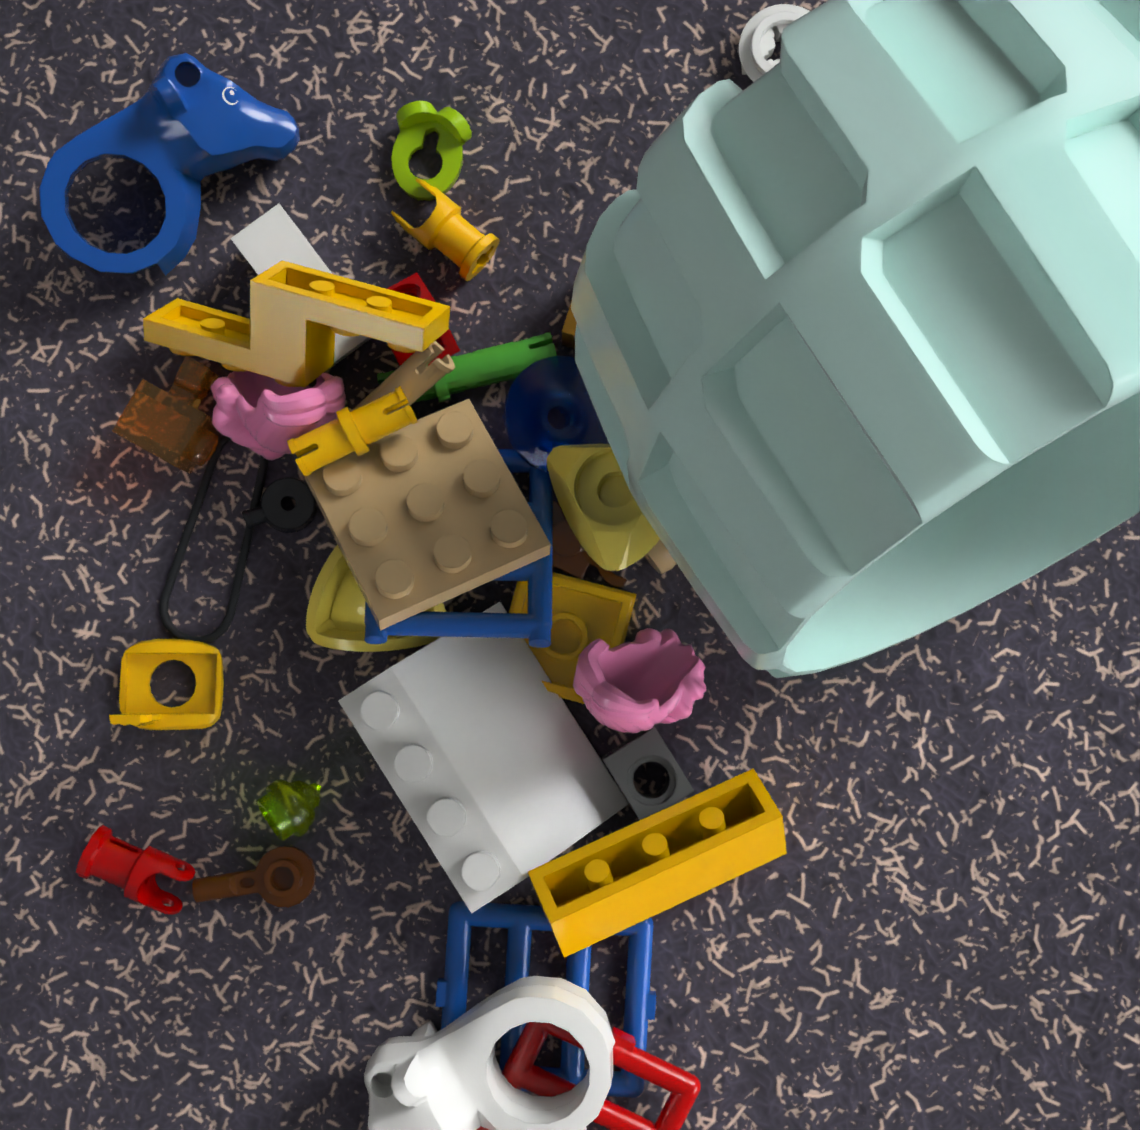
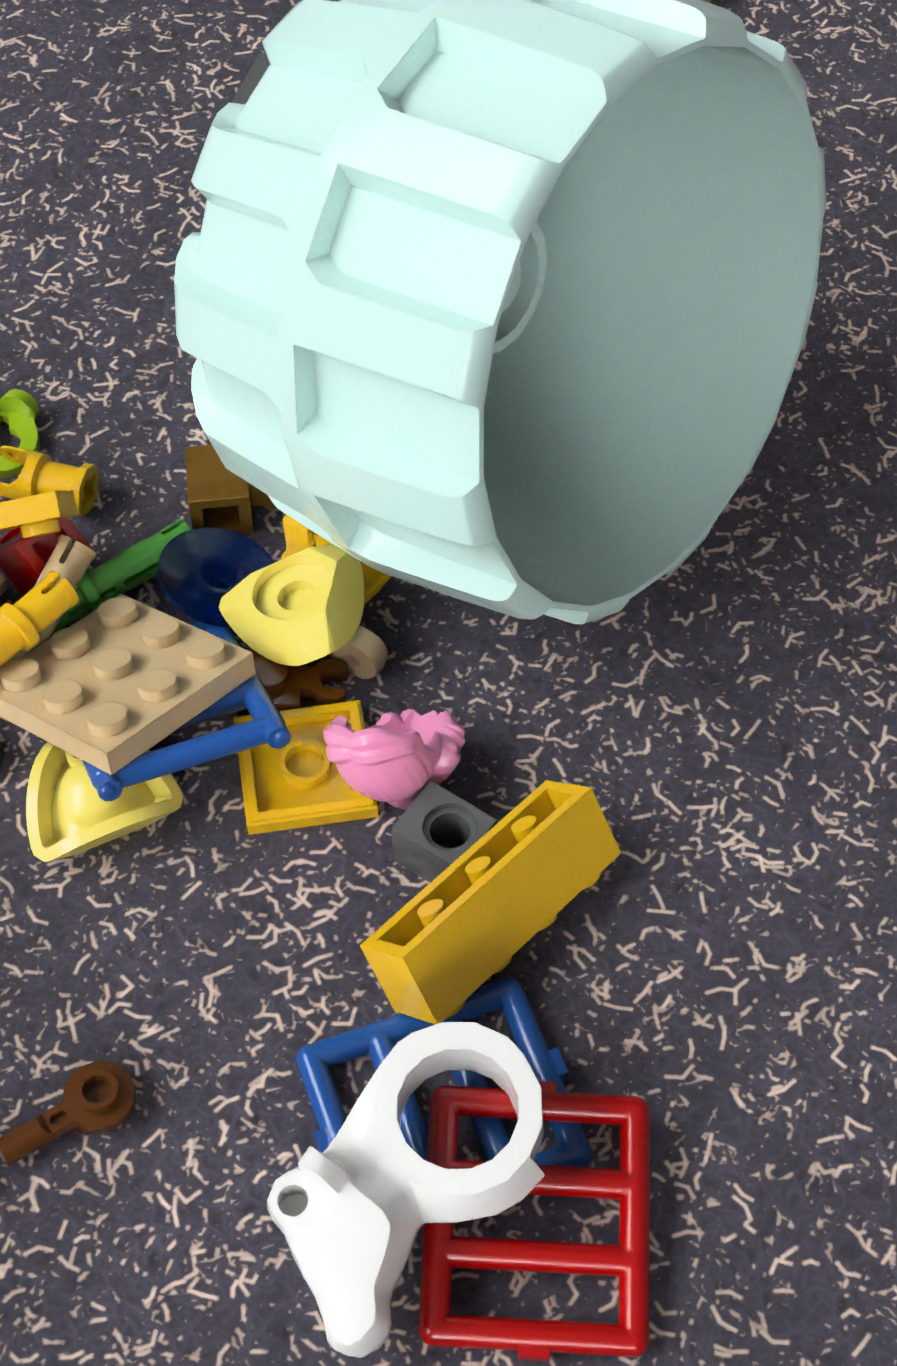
camera: 20 degrees left, 30 degrees down
(289, 807) = (75, 1024): clear neon green plate -> none
(483, 759) = (259, 893): white slope -> none

